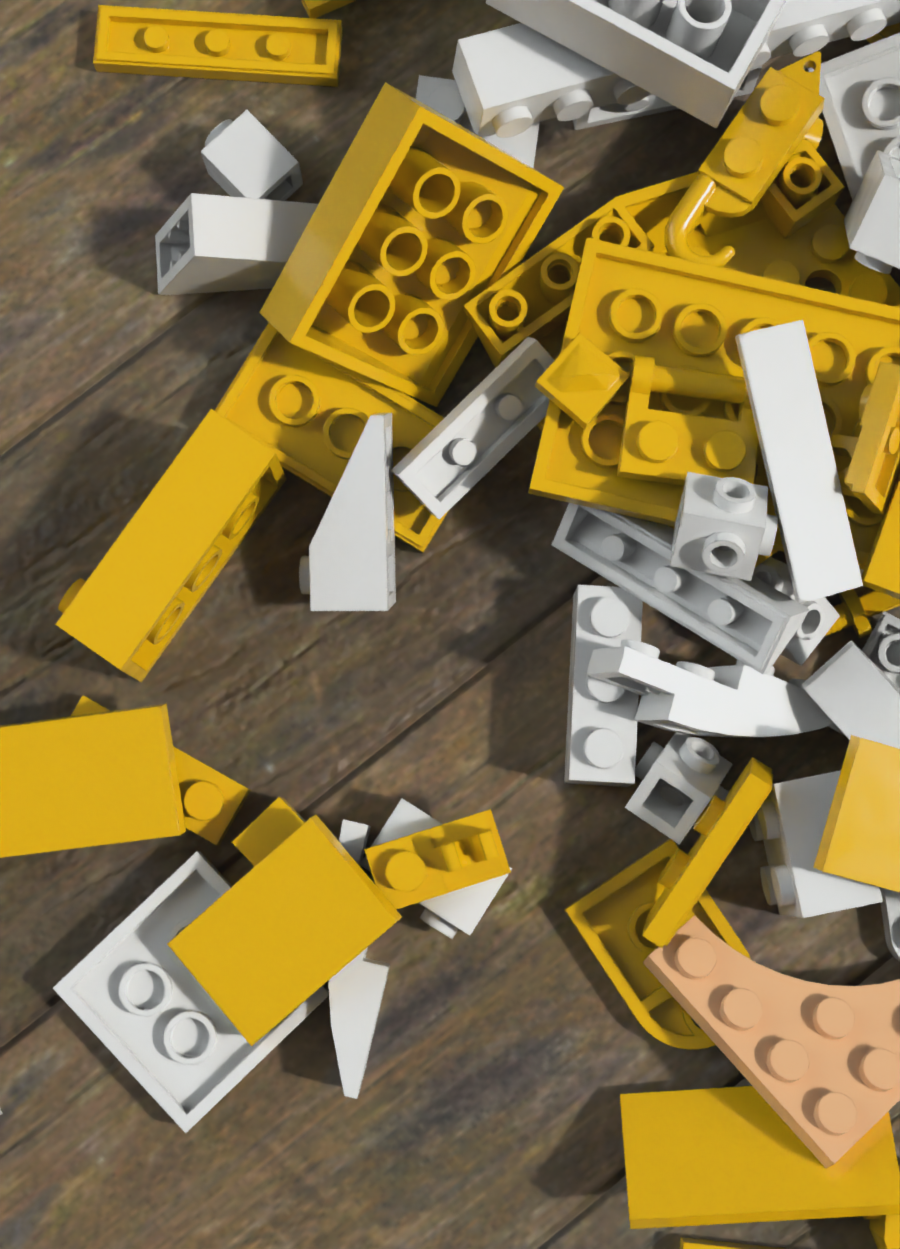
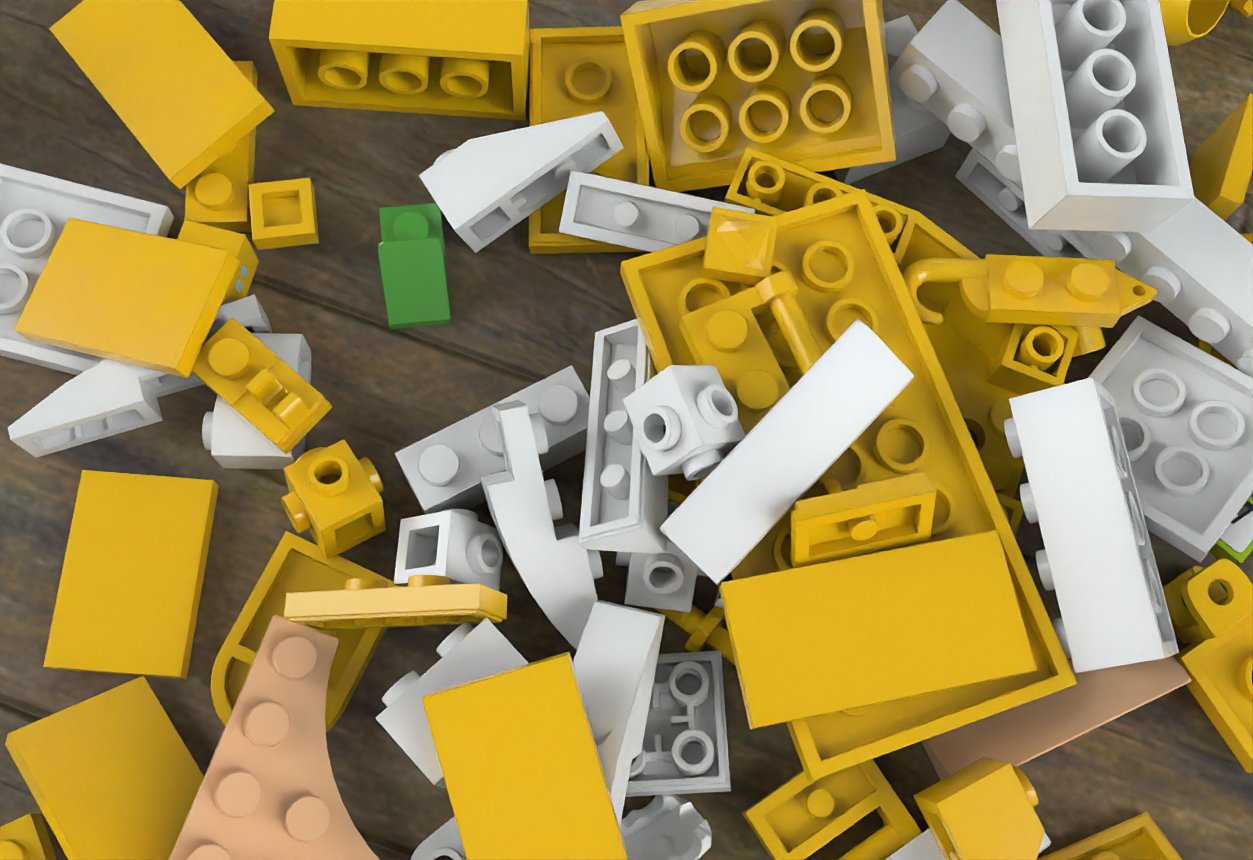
camera: 50 degrees right, 10 degrees down
(261, 751) = (283, 213): none -> yellow plate
(378, 662) = (414, 266): none -> bright green slope
(523, 1059) = (132, 575): none -> yellow tile
(582, 868) = (334, 498): none -> yellow brick

